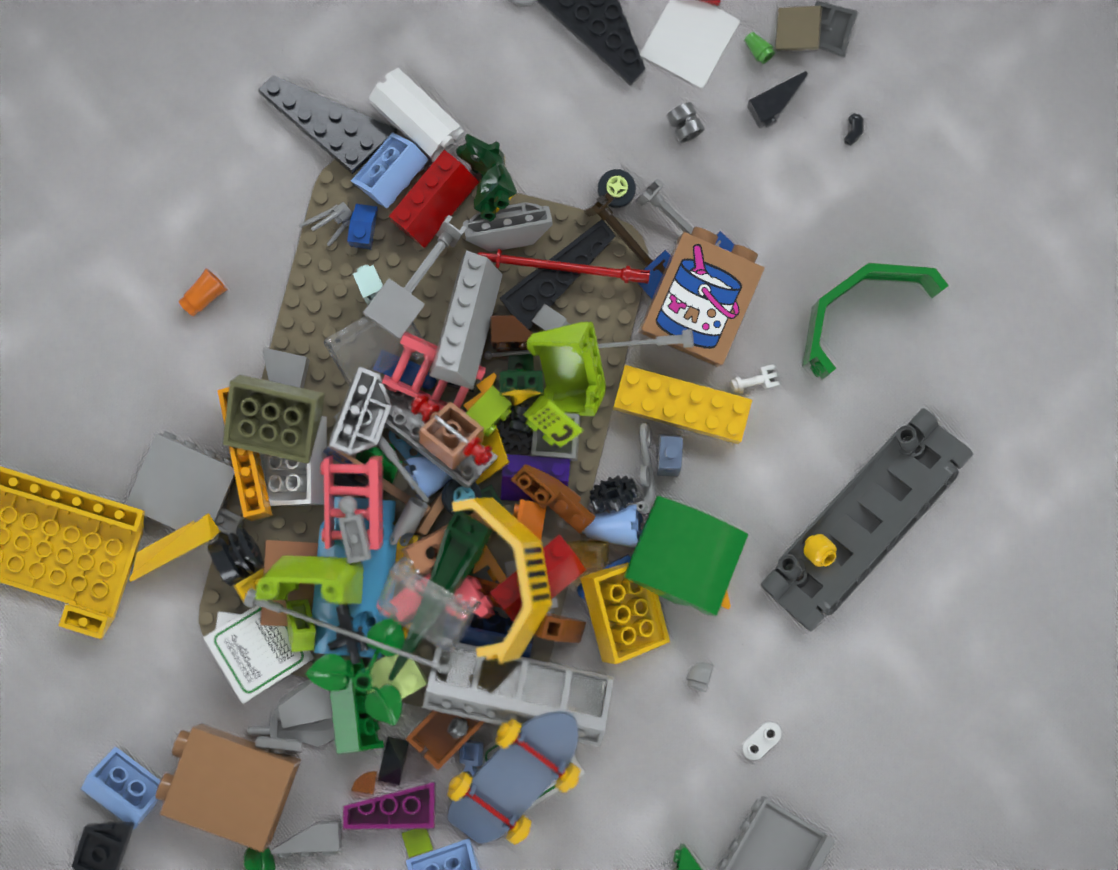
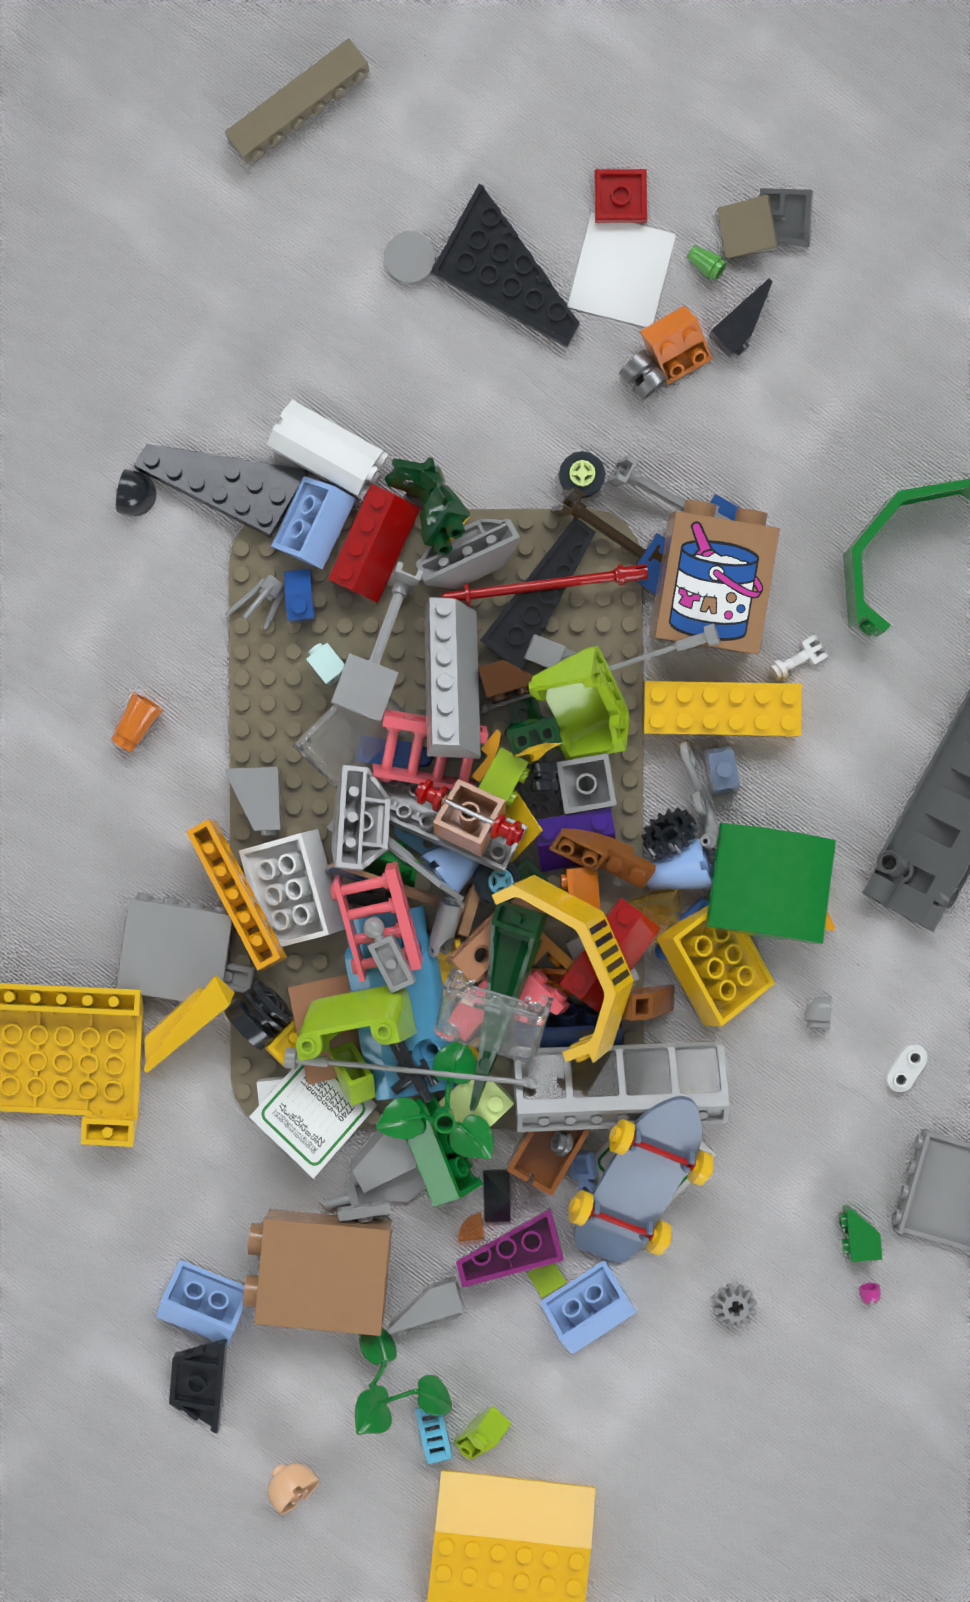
camera: 10 degrees left, 5 degrees up
(252, 112) = (134, 493): none -> black helmet
(272, 418) = (260, 849): olive slope -> none
(552, 421) = (580, 772): lime slope -> none
(719, 105) = (676, 344): none -> orange slope
(820, 550) = (921, 837): yellow head -> none
(857, 125) = (845, 330): black arm -> none

